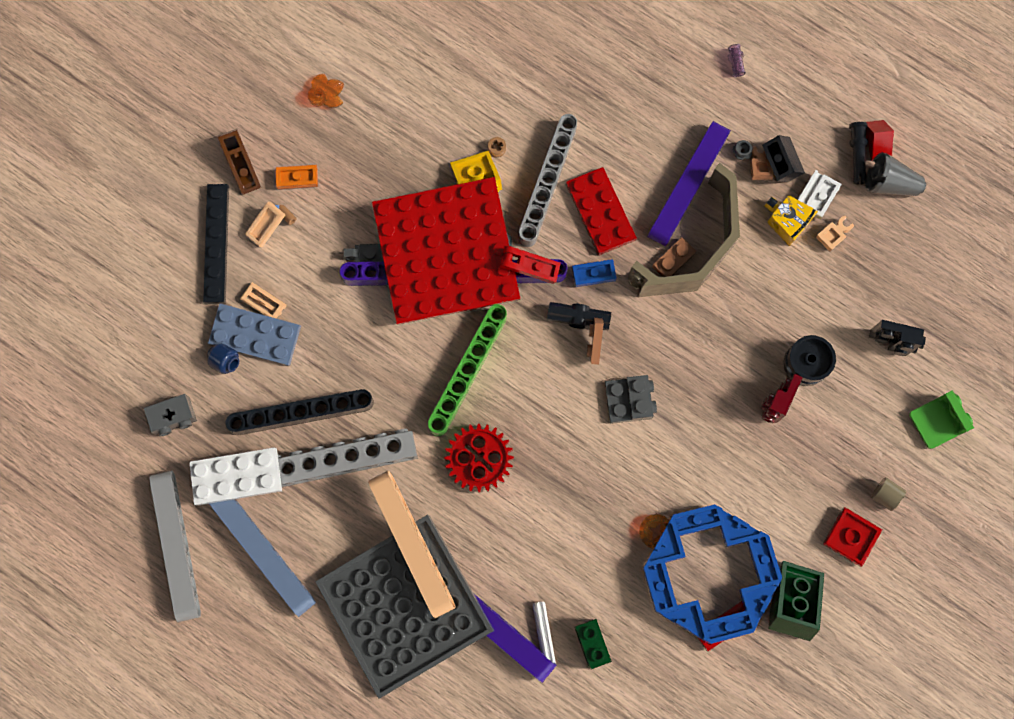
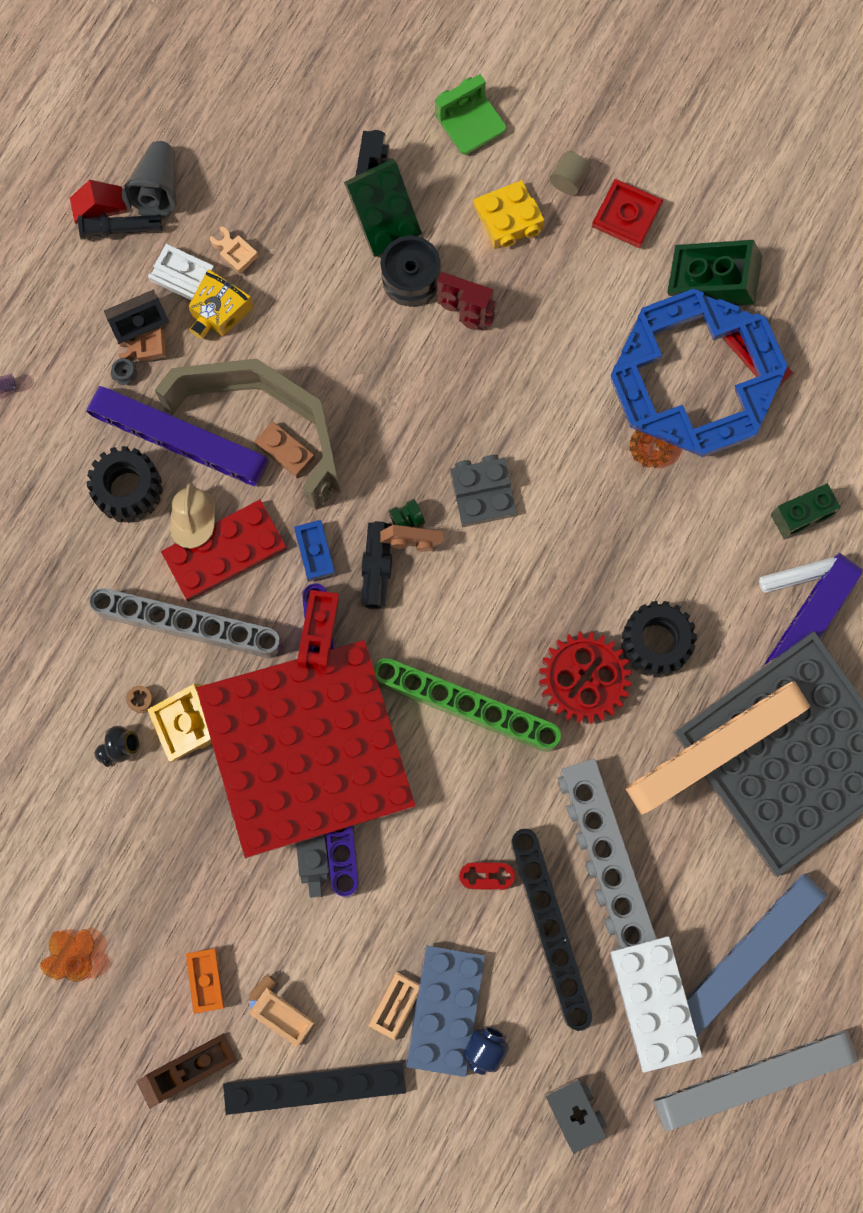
camera: 90 degrees left, 0 degrees up
(338, 372) = (487, 868): none -> red beam
(465, 129) = (117, 746): none -> black animal
(509, 497) = (666, 617): none -> black tyre
(614, 340) = (408, 515): none -> dark green wheel
(626, 189) = (192, 517): none -> tan piece
(658, 129) = (115, 465): none -> black tyre
(855, 443) = (509, 215): none -> yellow plate
(862, 342) = (382, 206): none -> dark green plate

